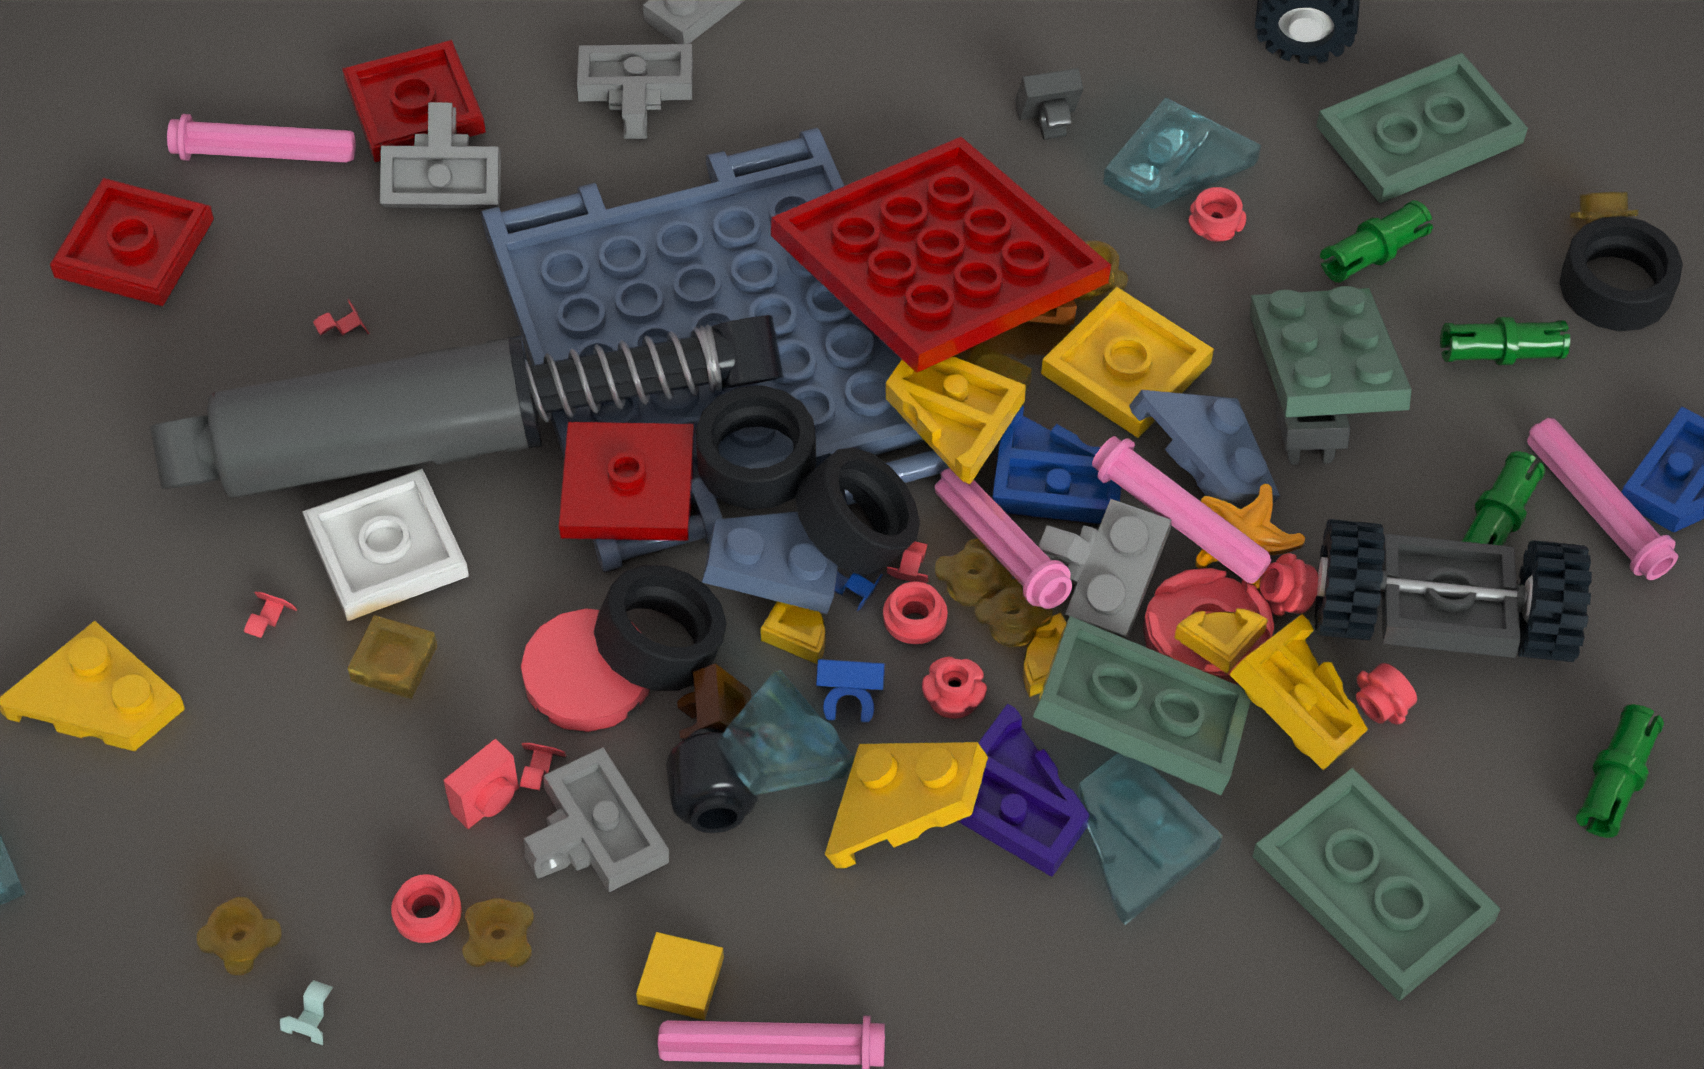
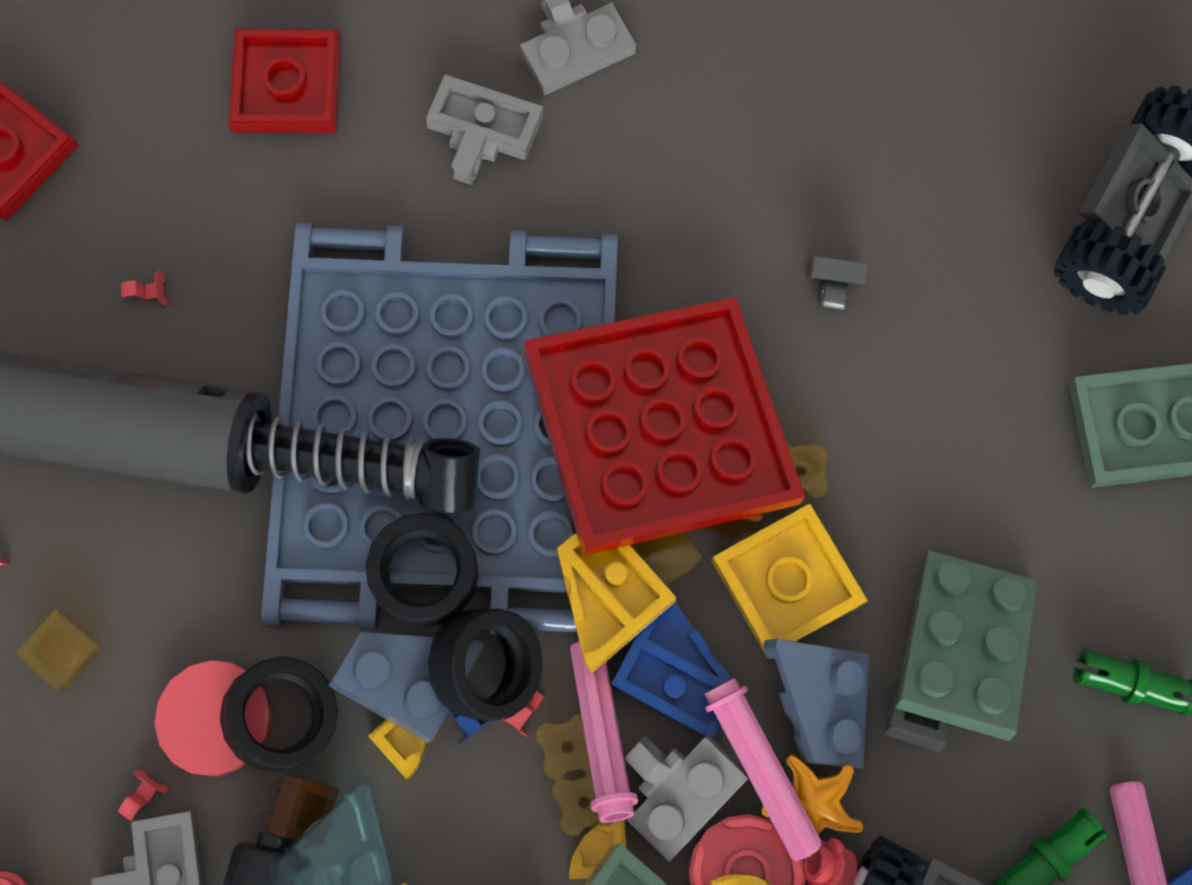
camera: 20 degrees right, 20 degrees up
(258, 141) = (87, 55): bright pink axle -> none
(385, 544) = (94, 535): white plate -> none
(440, 168) = (278, 165): light grey hinge -> none
(482, 784) = (82, 809): coral plate -> none
(627, 481) = (305, 558): red plate -> none
(850, 679) = (419, 819): blue tile -> none
(920, 599) = (486, 758): coral plate -> none
(954, 701) = (517, 865): coral plate -> none
(1177, 155) = (925, 375): clear light blue wing -> none
(1217, 214) = (941, 439): coral plate -> none
(1376, 241) = (1066, 532): green pin -> none

